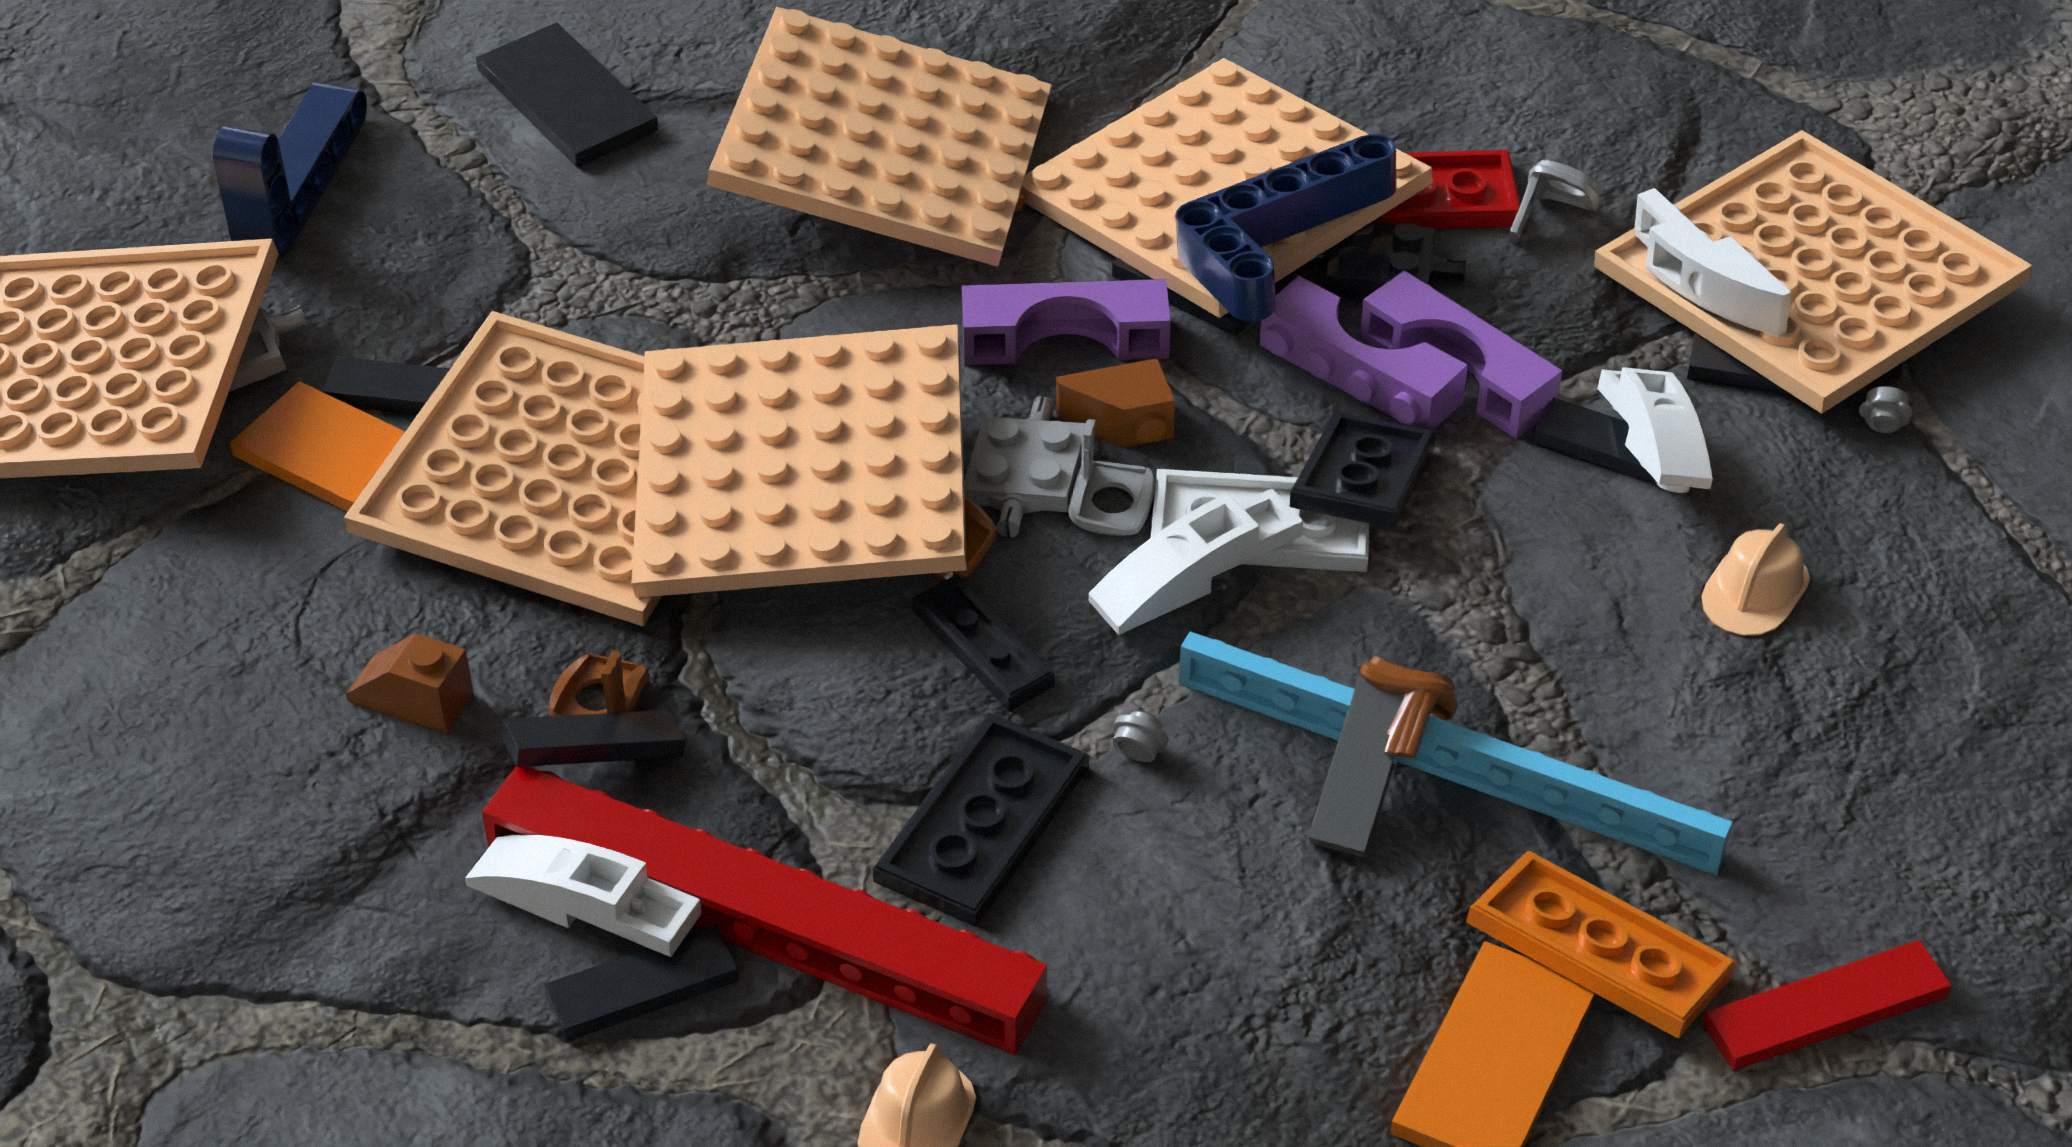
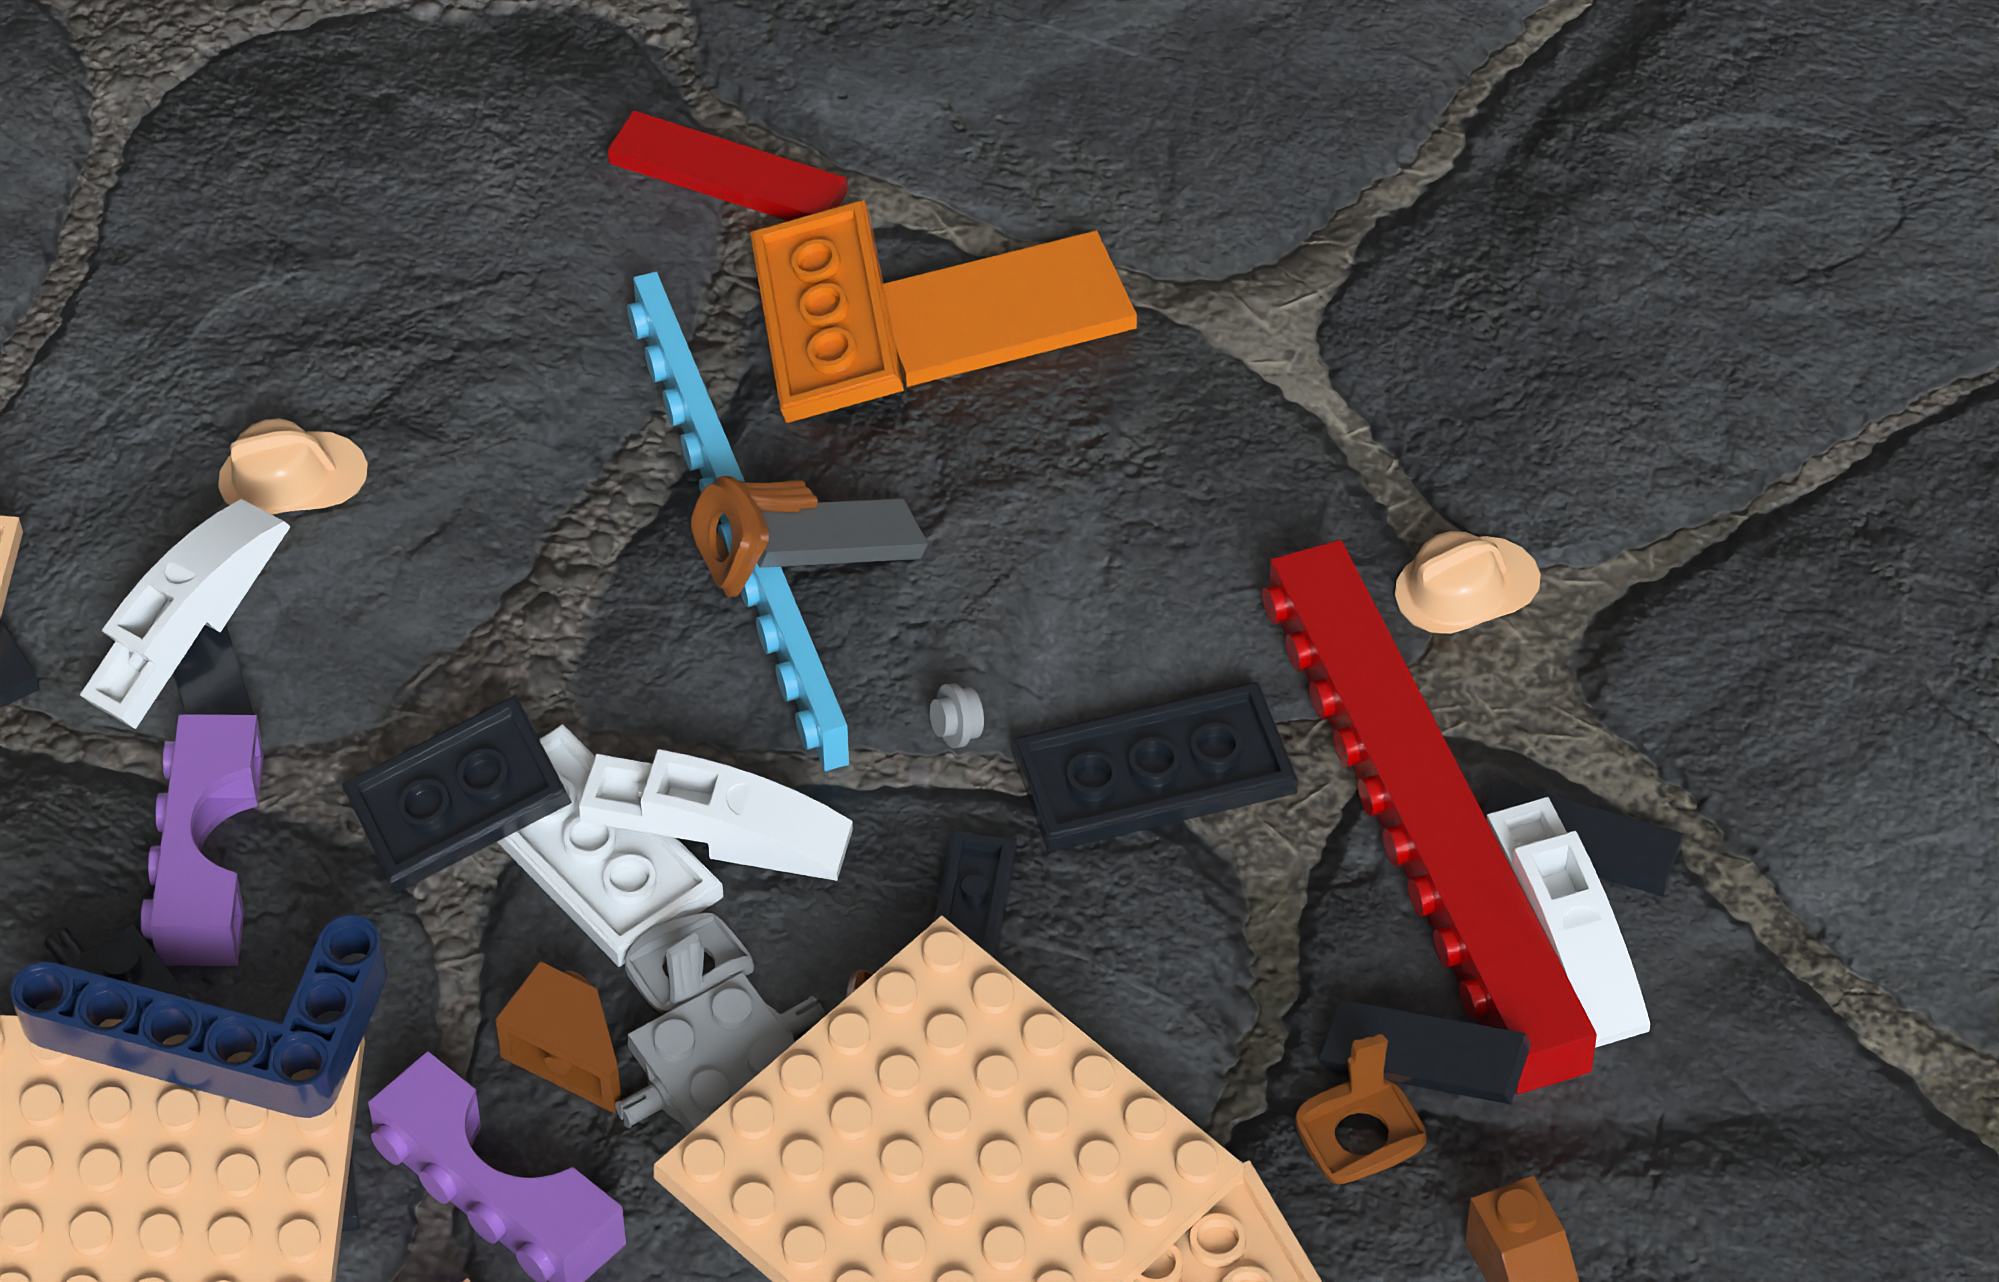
camera: 135 degrees left, 5 degrees up
(1409, 384) = (290, 846): medium lavender arch -> none

